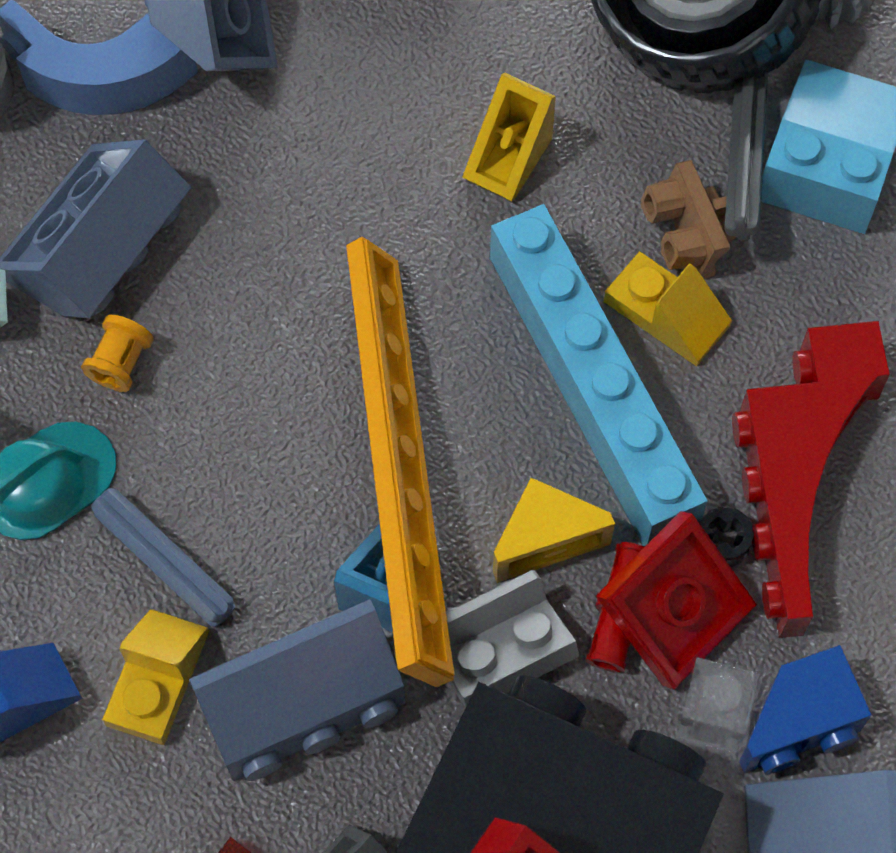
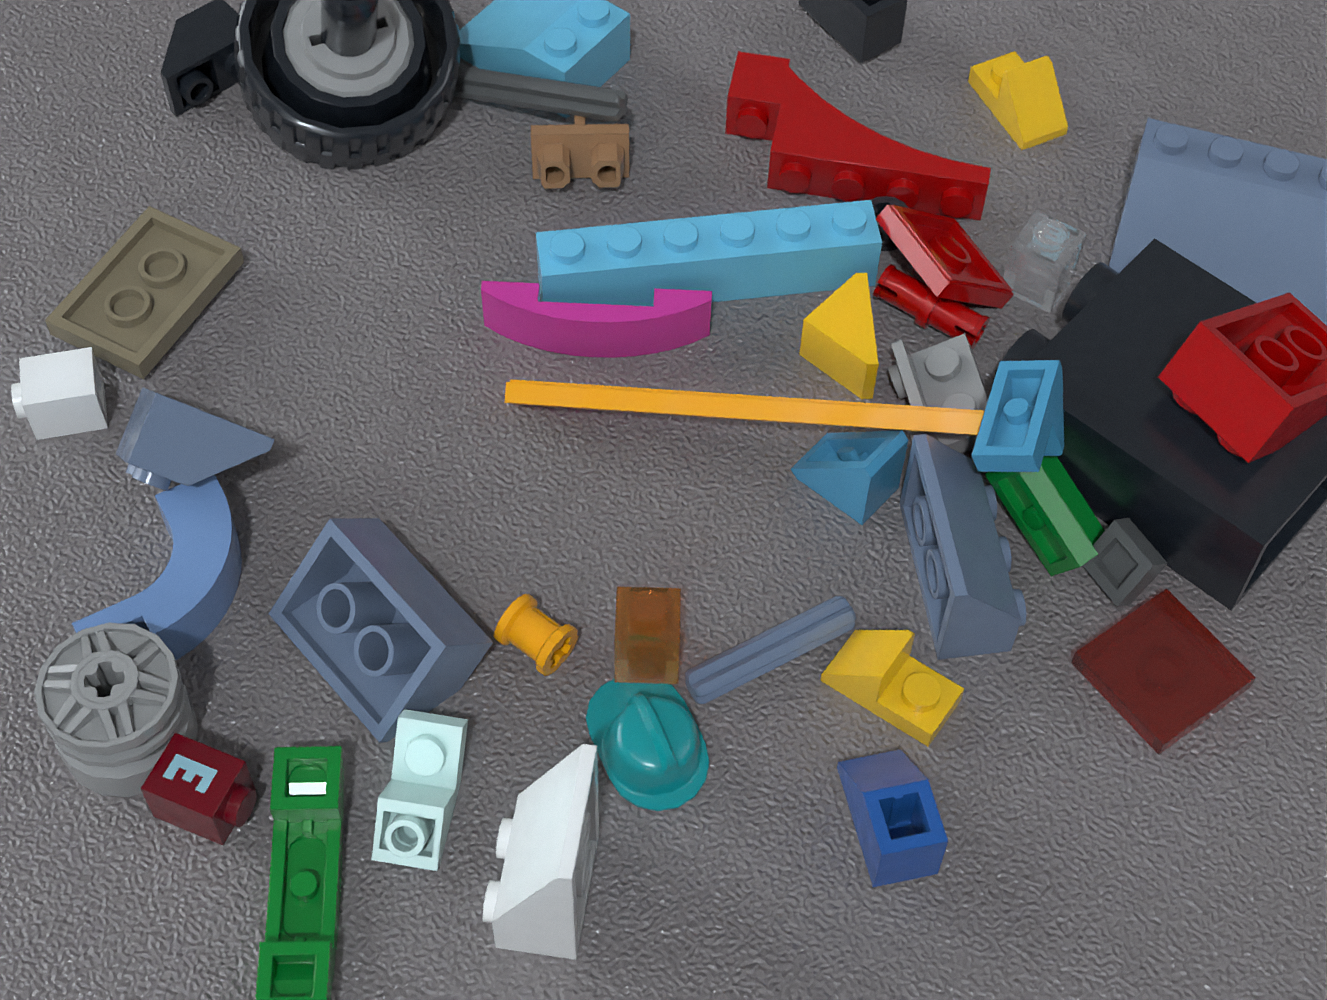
camera: 75 degrees left, 10 degrees down
(133, 441) = (647, 635): none -> clear orange brick
(384, 773) = (1050, 514): none -> green panel
(423, 692) = (1022, 417): none -> dark azure slope
(503, 355) = (596, 329): none -> dark pink slope
(511, 137) = (435, 253): yellow slope -> none
(670, 308) = (659, 192): yellow slope -> none
(806, 708) = (1065, 192): blue slope -> none

